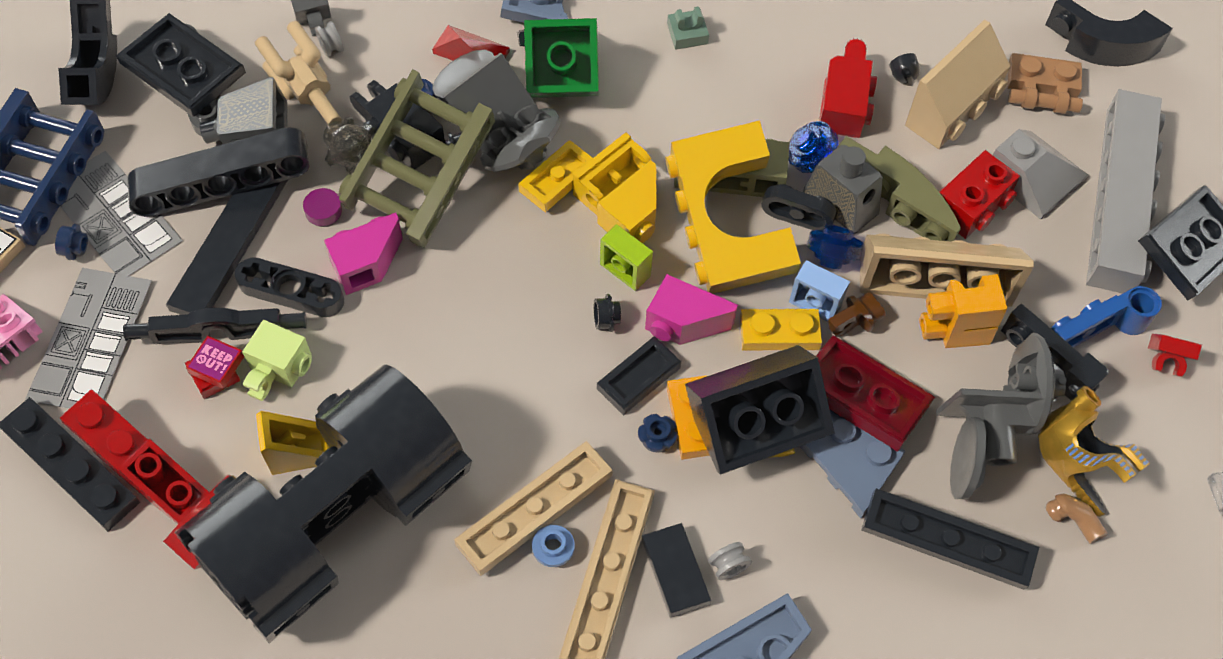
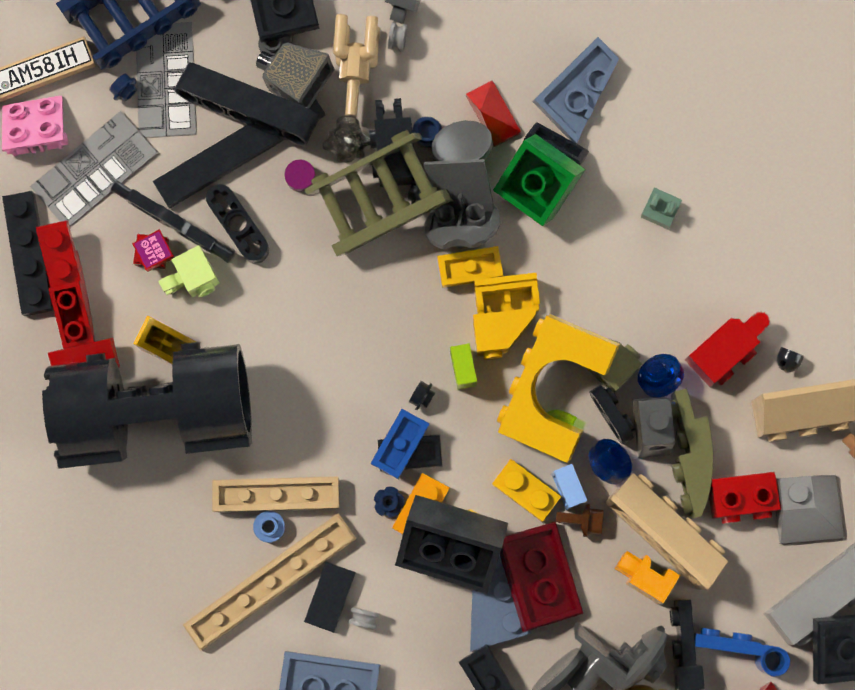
camera: 45 degrees right, 20 degrees up
(365, 252) = (299, 236): dark pink slope -> none
(624, 364) = (400, 444): none -> blue plate
(687, 312) = (470, 434): dark pink slope -> none

